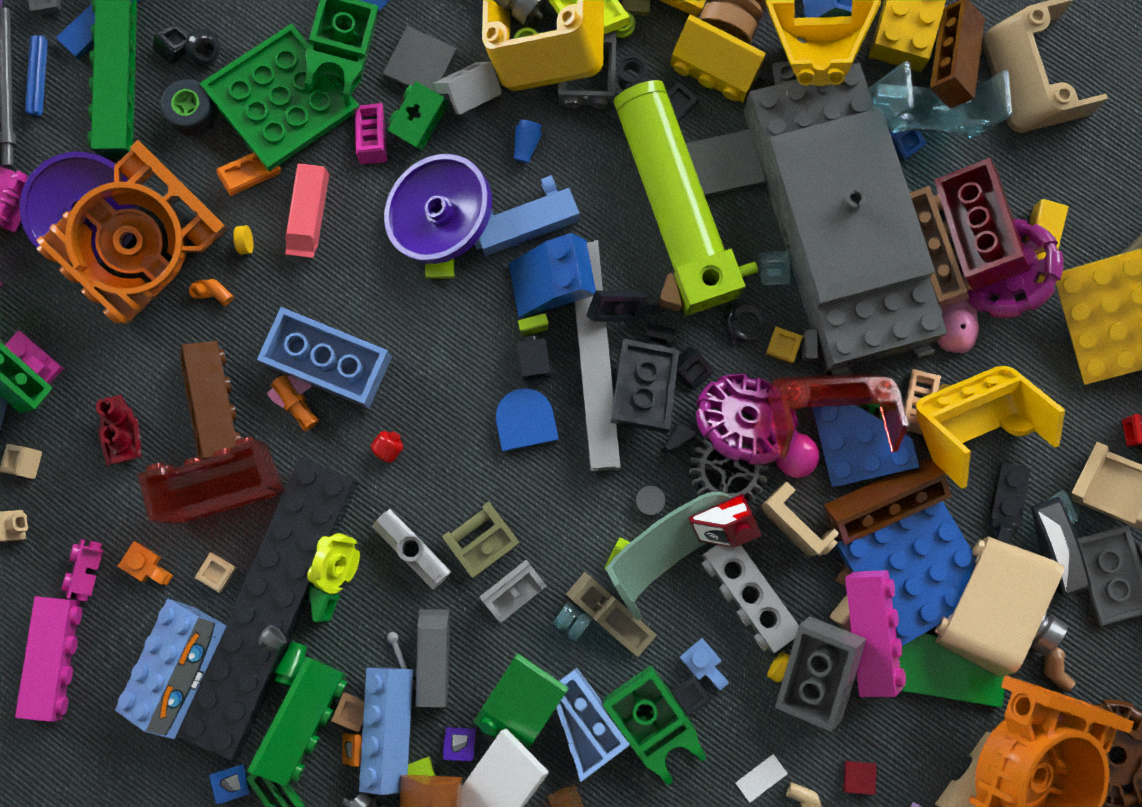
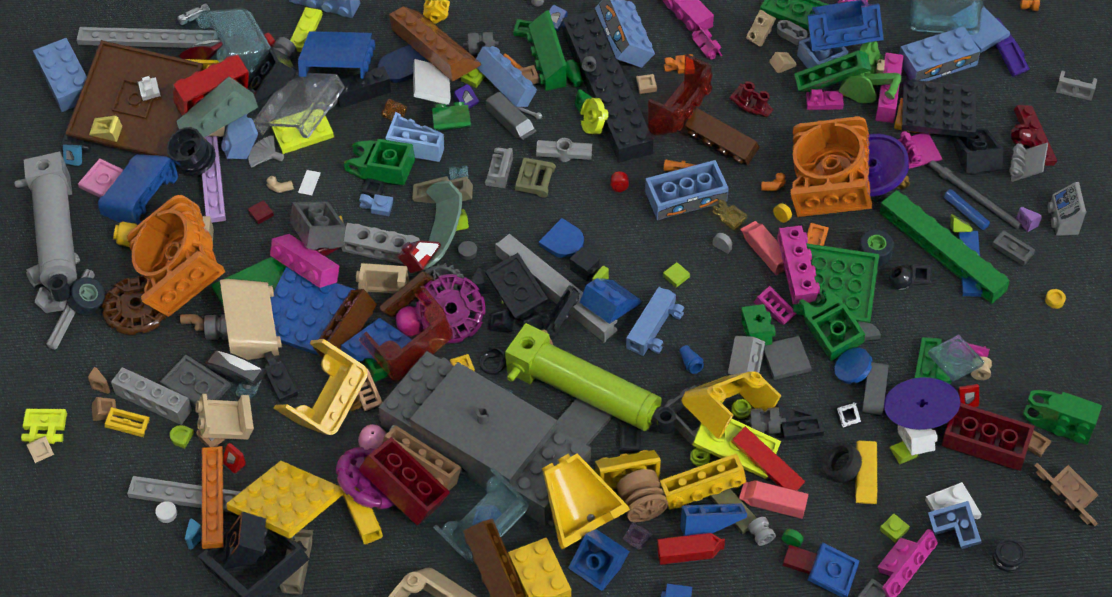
camera: 140 degrees right, 25 degrees down
(67, 58) = (959, 225): none -> lime slope
(302, 20) = (871, 332): none -> dark grey tile
(304, 286) = (730, 215): none -> clear yellow plate
(305, 138) = (797, 264): none -> dark pink brick
(349, 259) = (722, 242): none -> light grey tile
(438, 209) = (700, 288): dark purple dish -> none
(781, 476) = (405, 294): none -> reddish brown tile

